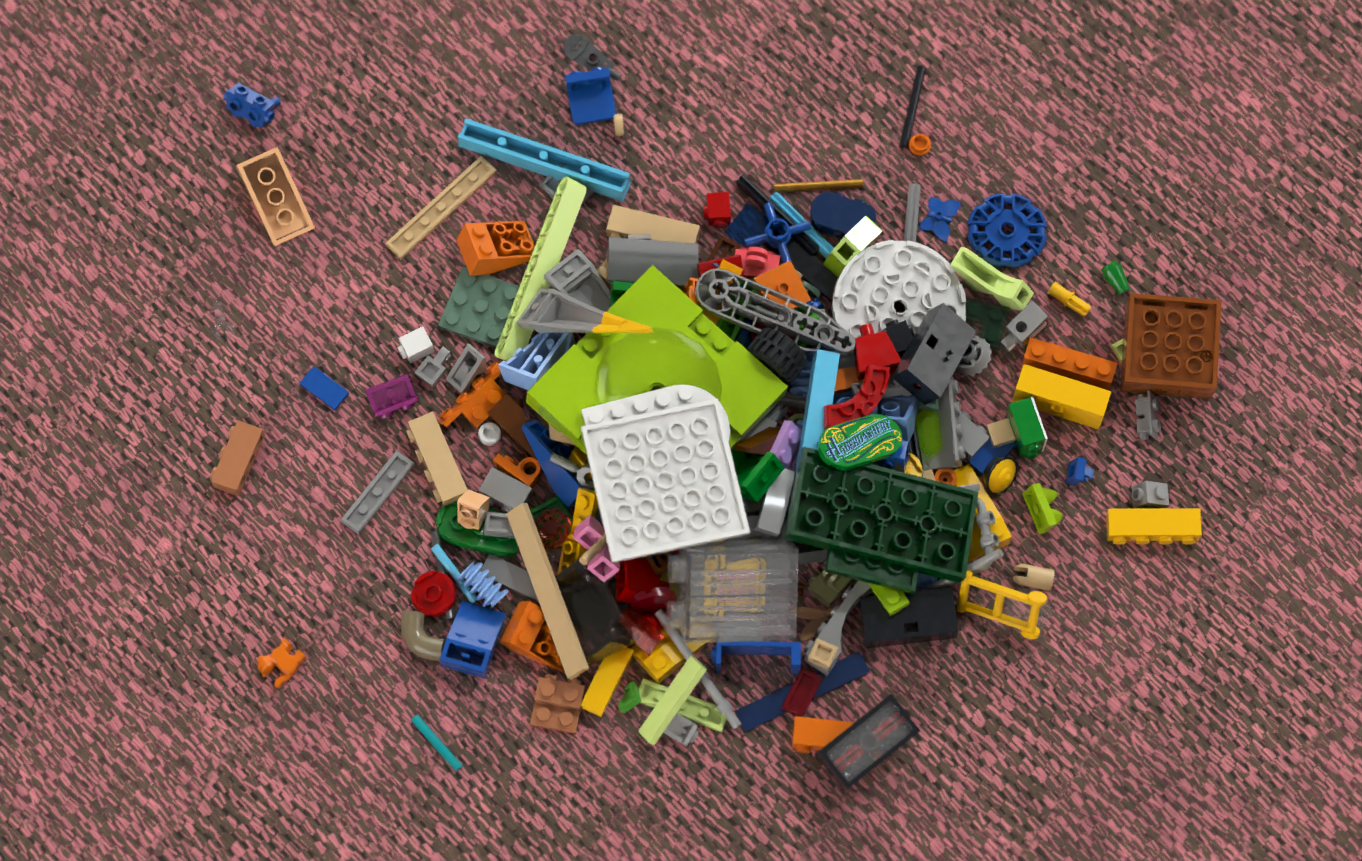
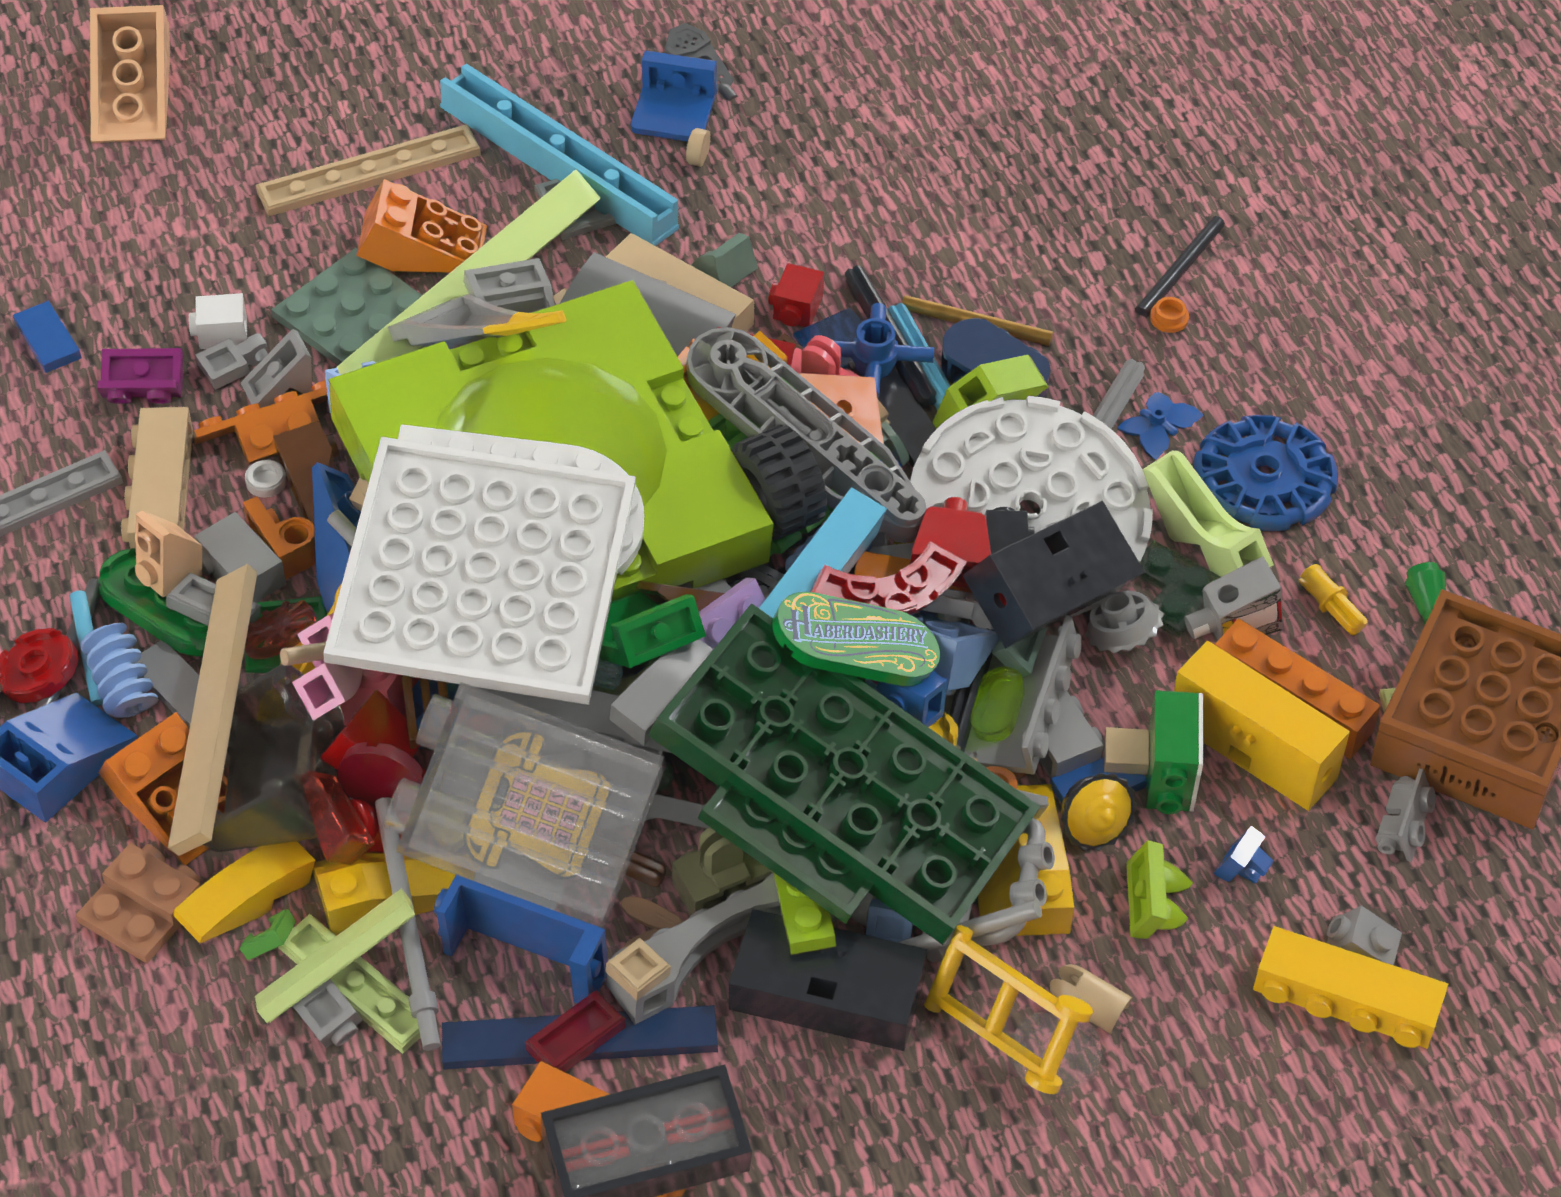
camera: 20 degrees right, 20 degrees down
(671, 200) = (730, 261): none -> sand green tile

